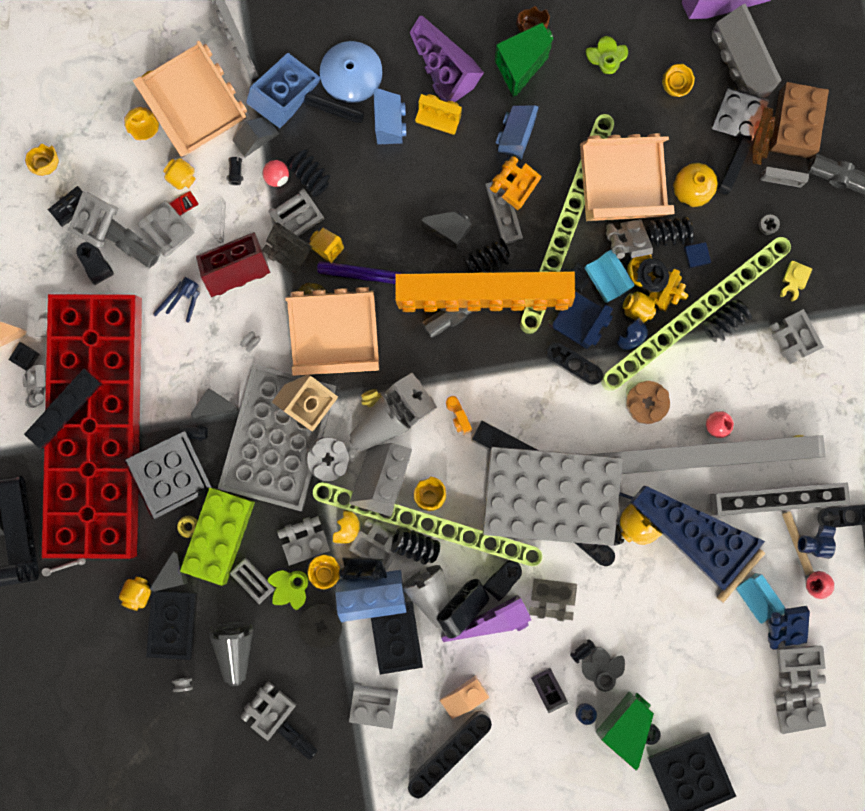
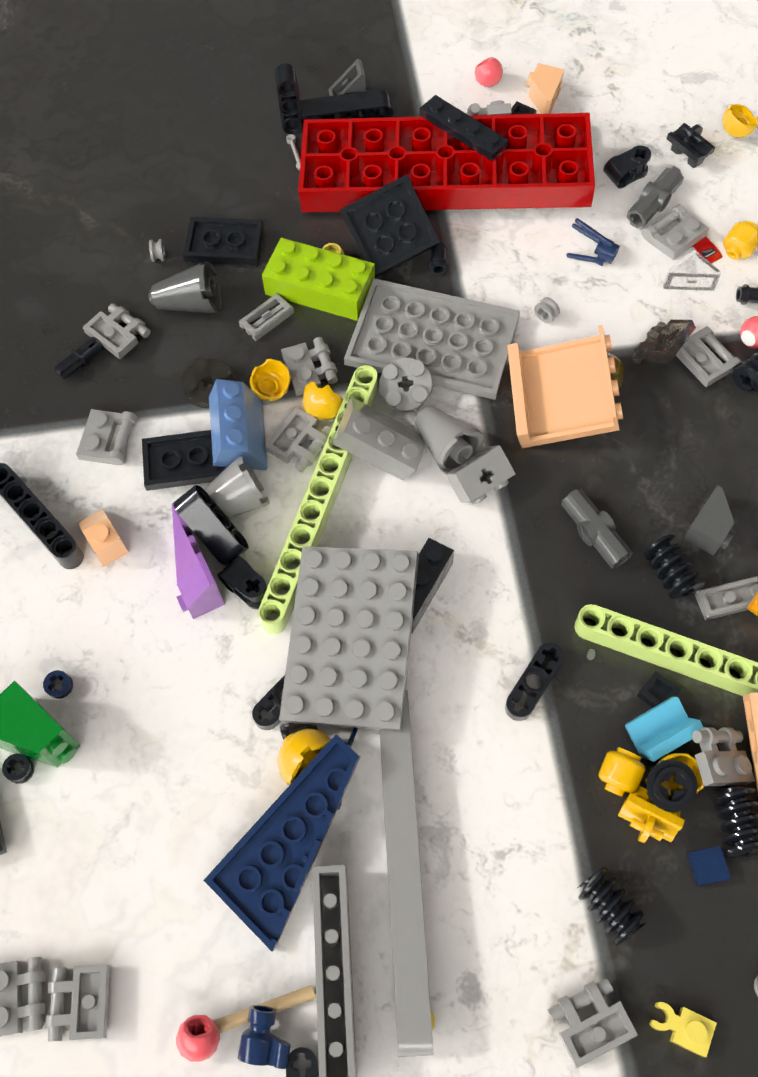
camera: 90 degrees right, 20 degrees down
(87, 216) = (678, 157): light grey plate -> none
(135, 593) = (260, 206): yellow head -> none
(170, 574) = (275, 230): dark grey slope -> none
(212, 405) = (471, 273): dark grey slope -> none
(232, 265) = (637, 291): dark red slope -> none
(286, 588) = (253, 350): lime plate -> none
(305, 401) = (474, 355): tan slope -> none
(326, 244) = (671, 384): yellow slope -> none
(357, 272) = (640, 425): dark purple axle -> none
(363, 567) = (269, 419): black hinge -> none
(370, 397) = (483, 428): light yellow plate -> none
(415, 545) = (294, 473): black piece -> none
(430, 494) = (358, 496): yellow hair -> none
(460, 421) = (455, 526): light orange plate -> none
(485, 290) = (630, 552): light orange brick -> none
(549, 690) = (93, 635): dark grey slope -> none
(553, 592) = (222, 645): clear smoke plate -> none
(583, 321) = (597, 691): dark blue bracket -> none
(583, 651) = (141, 682): black piece -> none
(602, 666) = (118, 708): dark grey plate -> none
(635, 335) = (580, 758): dark blue hair -> none
(657, 394) = (497, 773): medium nougat plate -> none
(703, 307) = (634, 864): yellowish green beam -> none
(719, 424) = (450, 885): coral piece -> none
(741, 575) = (224, 913): tan bar -> none
(760, 597) = (187, 941): medium azure panel -> none
(794, 624) = (139, 989): dark blue plate -> none

